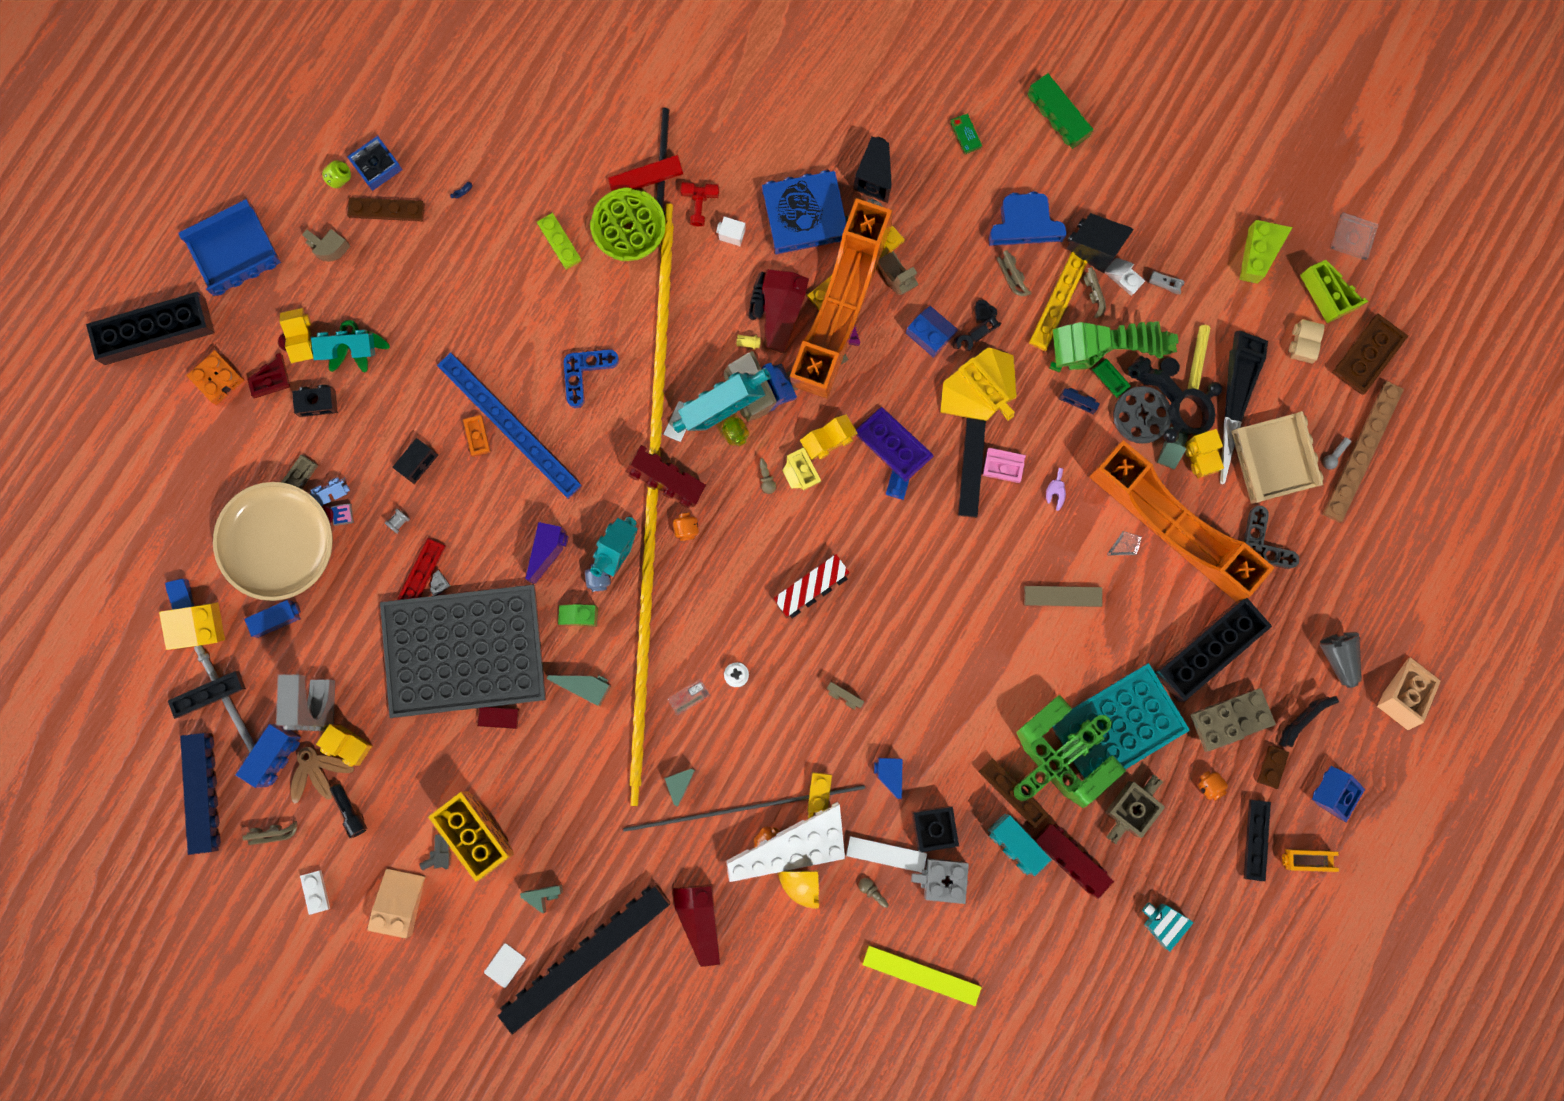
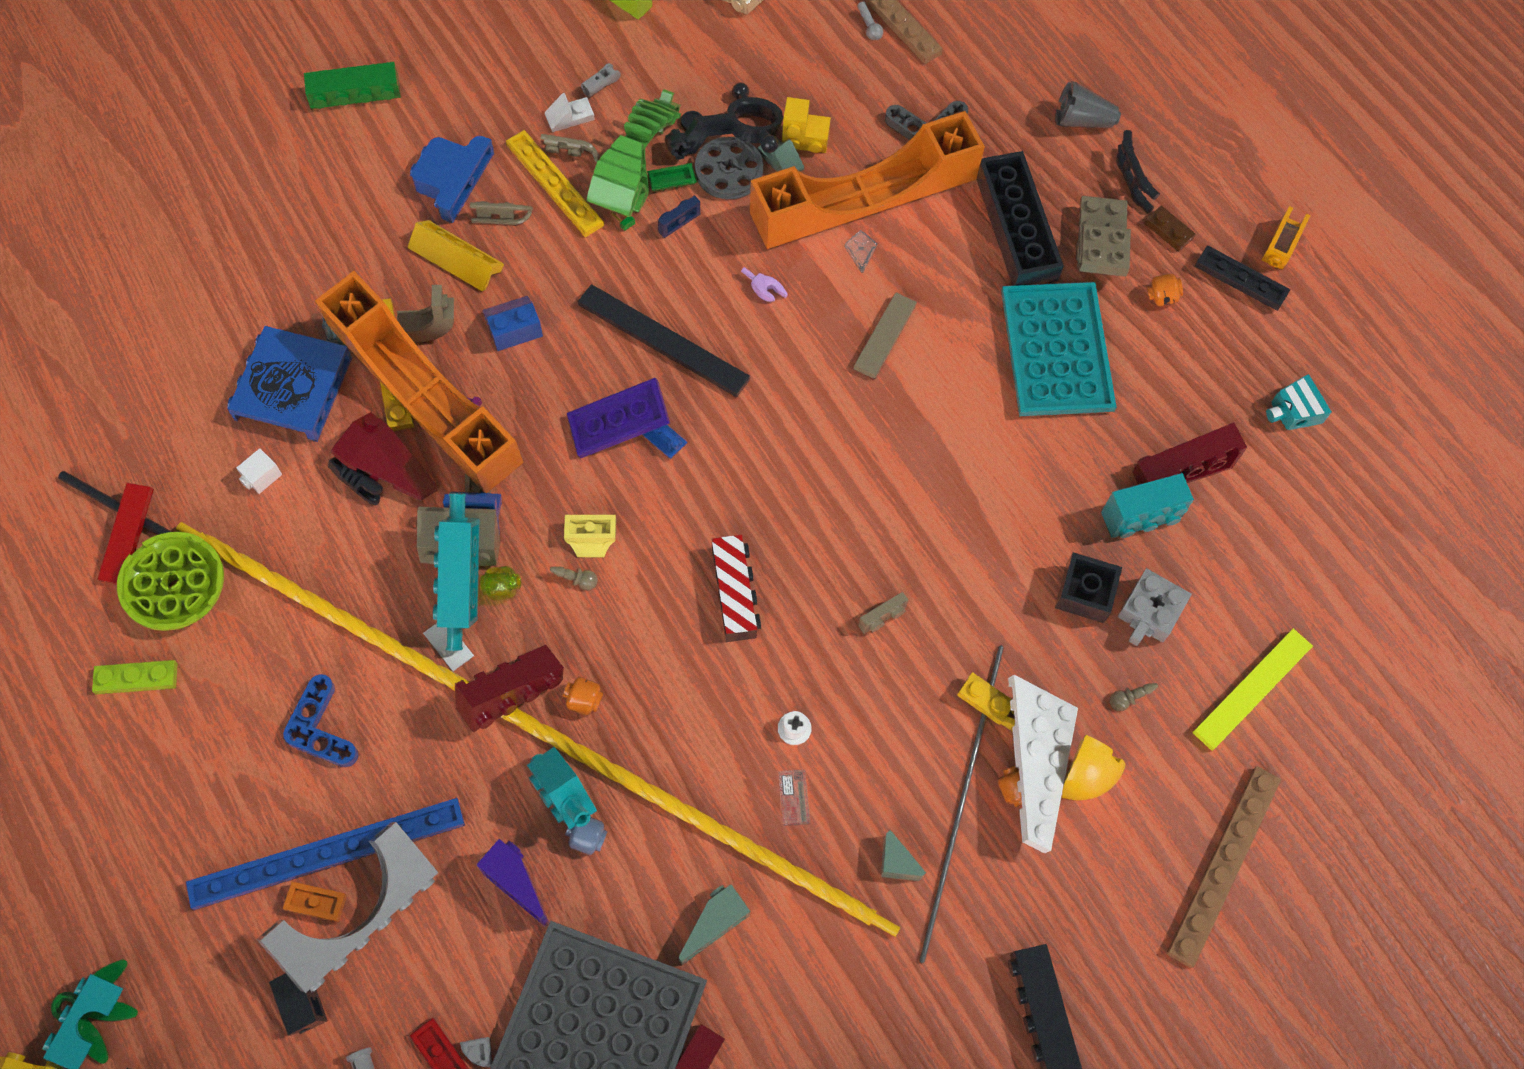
camera: 65 degrees left, 15 degrees down
(438, 456) = (310, 959): none -> light grey arch
(578, 615) = (620, 884): bright green slope -> none
(698, 918) = (1074, 918): dark red wedge -> none
(699, 195) = (193, 486): red bar -> none
(748, 341) = (401, 517): light yellow pin -> none
(785, 1003) = (1223, 867): none -> medium nougat plate
(825, 439) = (569, 483): yellow brick -> none
(874, 172) = (292, 283): black slope -> none
(886, 854) = (1092, 659): white tile -> none
(890, 774) = (1002, 607): blue slope -> none
(963, 261) = (453, 254): none -> yellow panel
(966, 134) = (314, 184): green tile -> none
(976, 333) = (546, 290): black piece -> none
(981, 387) = (607, 302): yellow panel -> none
(983, 310) = (523, 261): black tile -> none
(1004, 465) = (707, 322): bright pink plate -> none
(1005, 785) = (1082, 488): reddish brown plate -> none
(1078, 791) = (1087, 426): bright green piece -> none
(1098, 240) = (518, 113): black slope -> none
(1147, 808) = (1158, 373): dark tan brick -> none
(1199, 356) = (697, 89): light yellow axle -> none
(1243, 371) = (734, 53): black plate -> none
(1277, 457) = (845, 70): tan panel -> none
(1338, 793) = (1224, 182): blue slope -> none
(1409, 694) = (1152, 75): light nougat slope -> none

